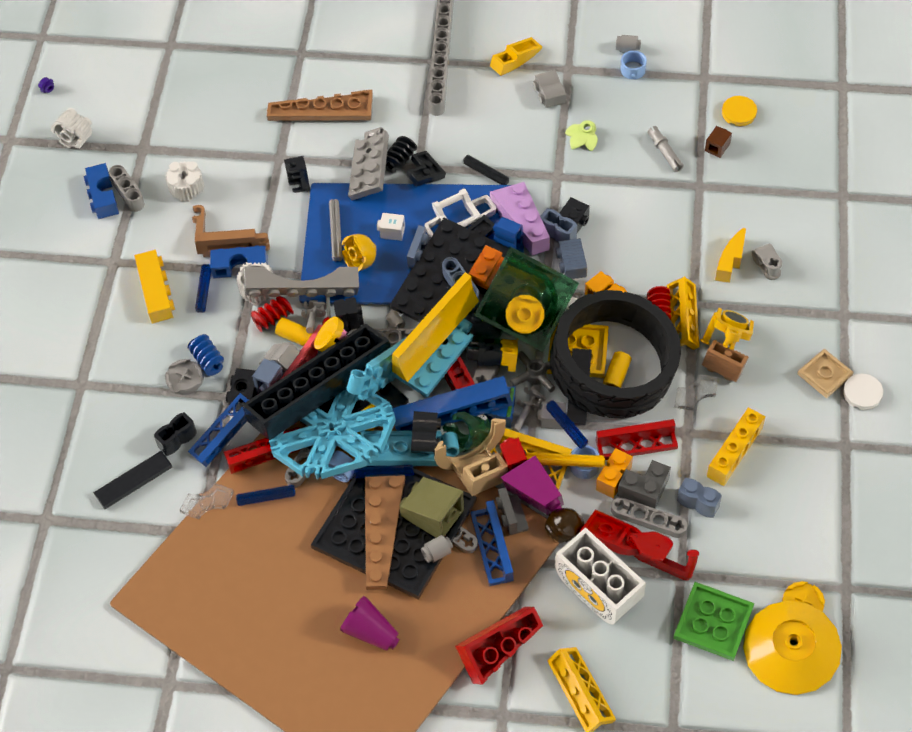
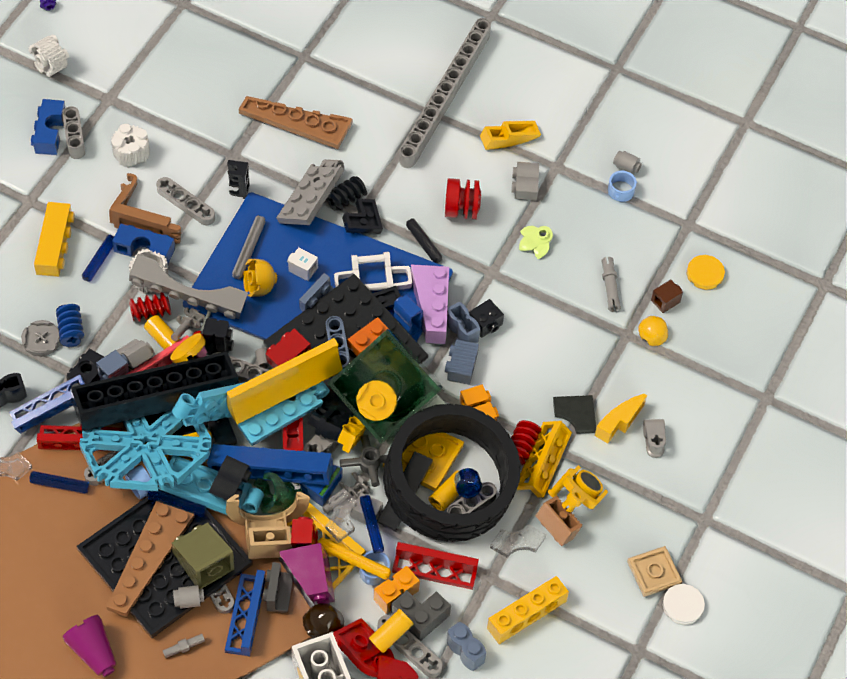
camera: 15 degrees right, 0 degrees up
(256, 213) = (185, 201): none -> light grey beam
(419, 303) = (290, 346): none -> red brick
(450, 594) = (183, 645): none -> light grey bar
(503, 121) = (462, 198): none -> red wheel
(539, 434) = (340, 523): none -> clear tile
(631, 508) = (391, 631): none -> yellow pin
(633, 357) = (468, 483): none -> clear blue head
(644, 369) = (480, 501): none -> light grey beam
(691, 264) = (576, 410): none -> pearl dark grey tile
(721, 174) = (653, 330): none -> yellow hair

